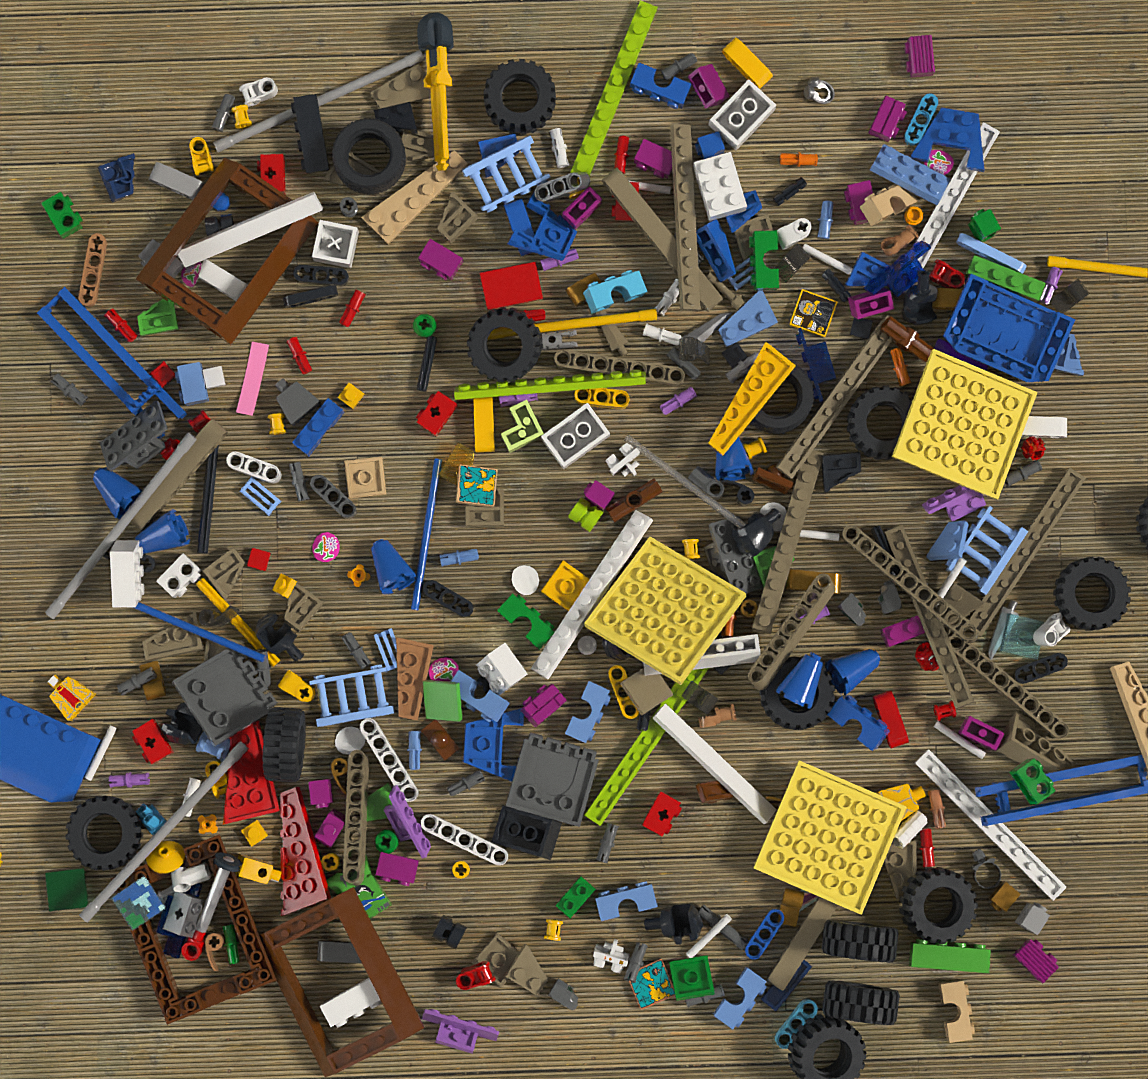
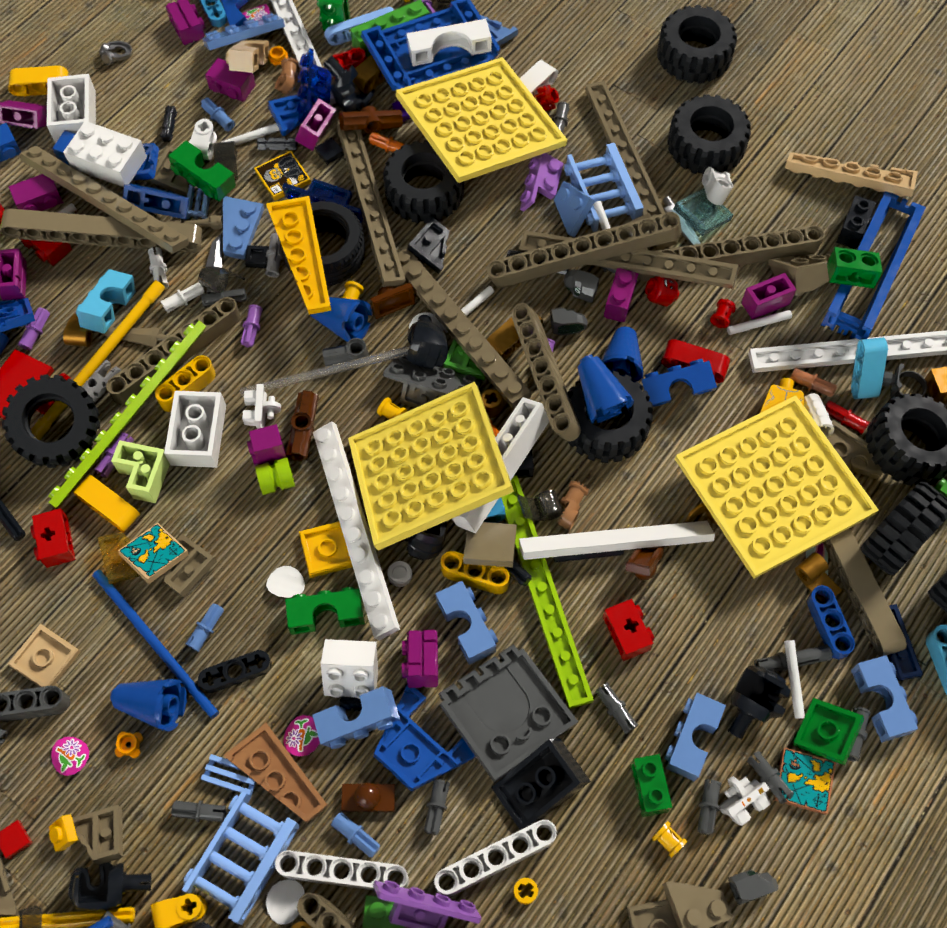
camera: 45 degrees left, 20 degrees down
(442, 700) = (329, 758): bright green tile -> none
(590, 939) = (709, 806): none -> dark grey axle
(743, 489) = (382, 329): black panel -> none
(798, 159) = (150, 99): orange axle -> none
(969, 840) = (869, 368): none -> medium azure beam
(1035, 357) = (471, 36): none -> white arch
(1052, 658) = (741, 211): black beam -> none
(1098, 751) = (856, 222): none -> black brick

